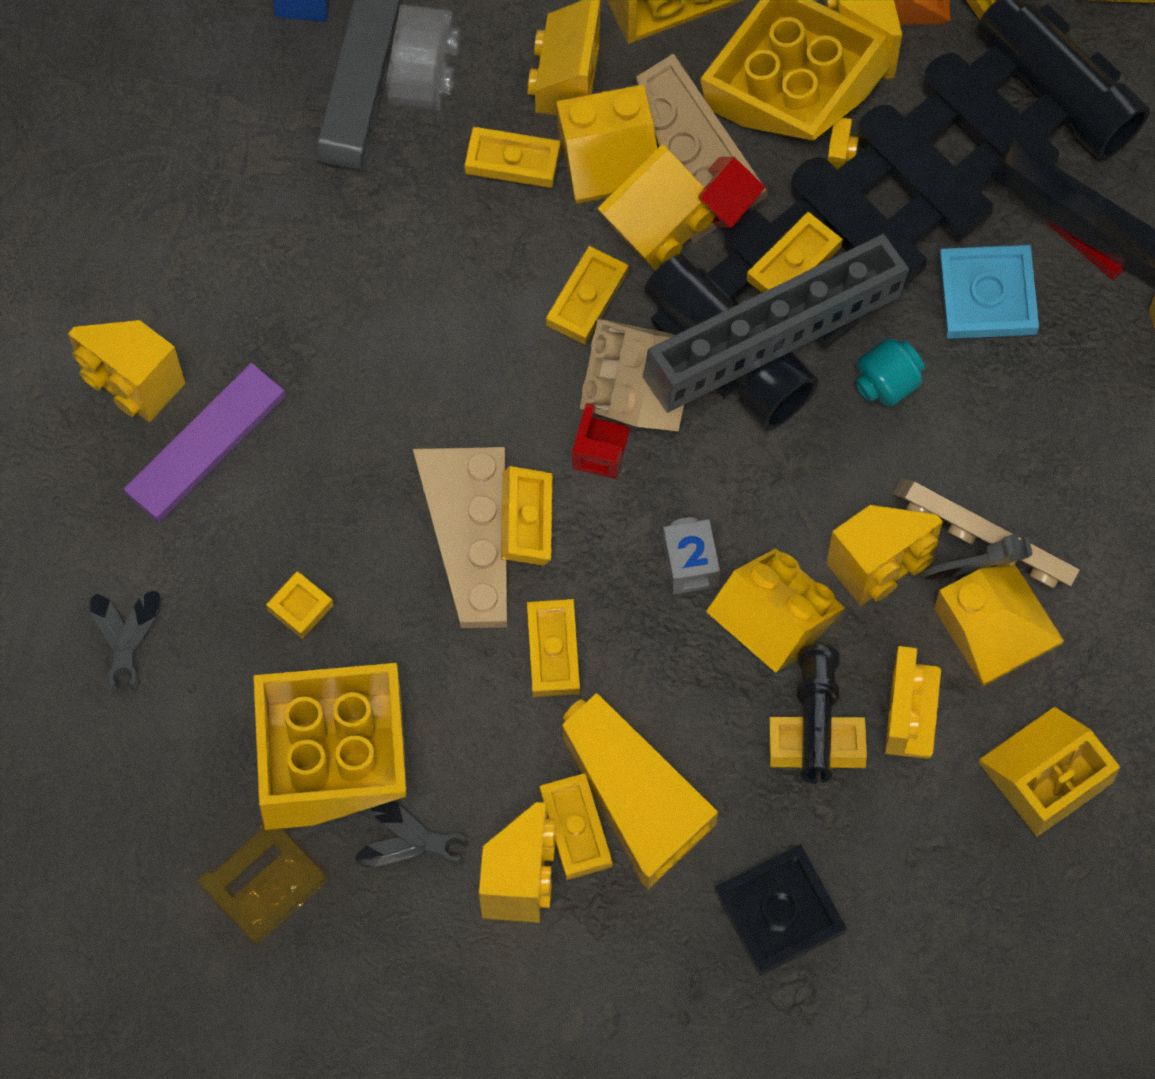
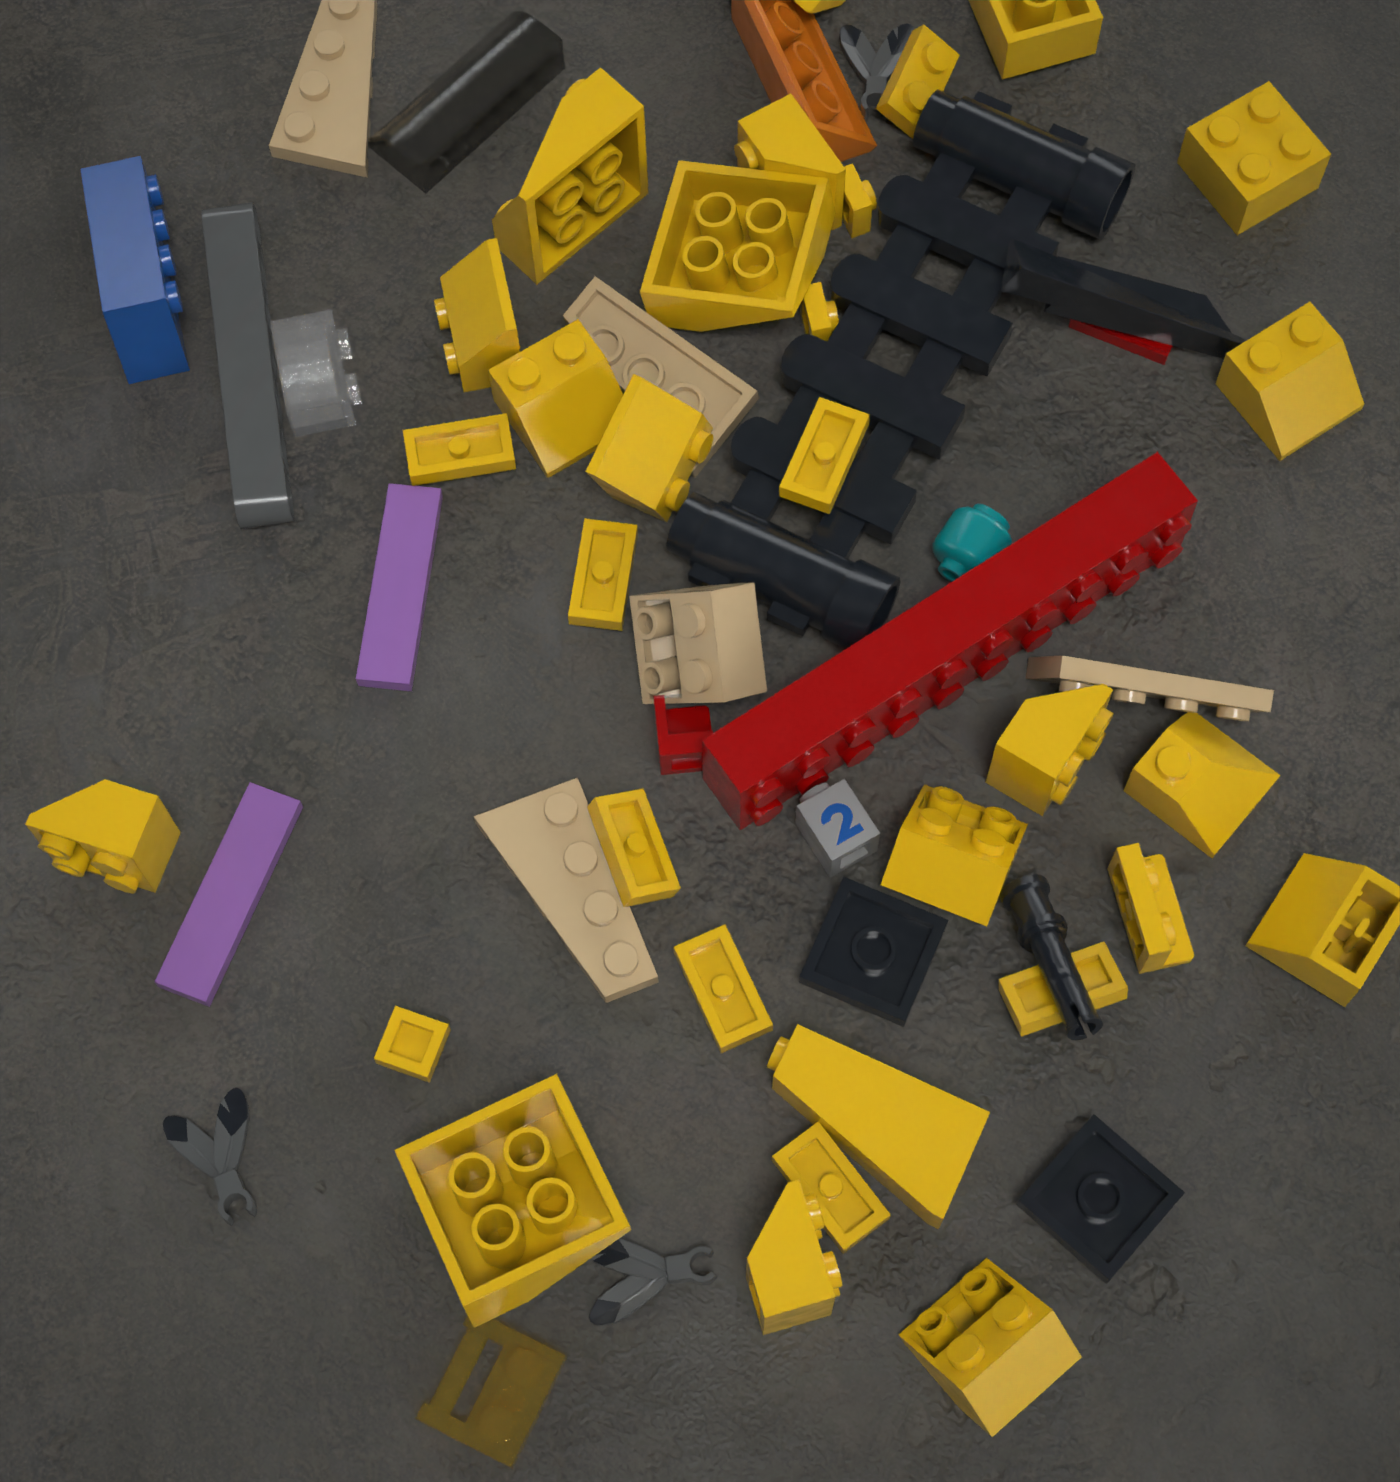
camera: 20 degrees left, 0 degrees up
(424, 250) = (399, 587): none -> medium lavender tile
(649, 986) = (991, 1346): none -> yellow slope
(681, 661) = (873, 951): none -> black plate
(729, 191) = (723, 403): red panel -> none
(774, 323) = (836, 533): dark grey brick -> none
(837, 441) = (947, 642): none -> red brick
(911, 61) = (858, 203): none -> yellow plate
(988, 291) = (1040, 420): medium azure plate -> none
(999, 554) = (1184, 705): dark grey piece -> none

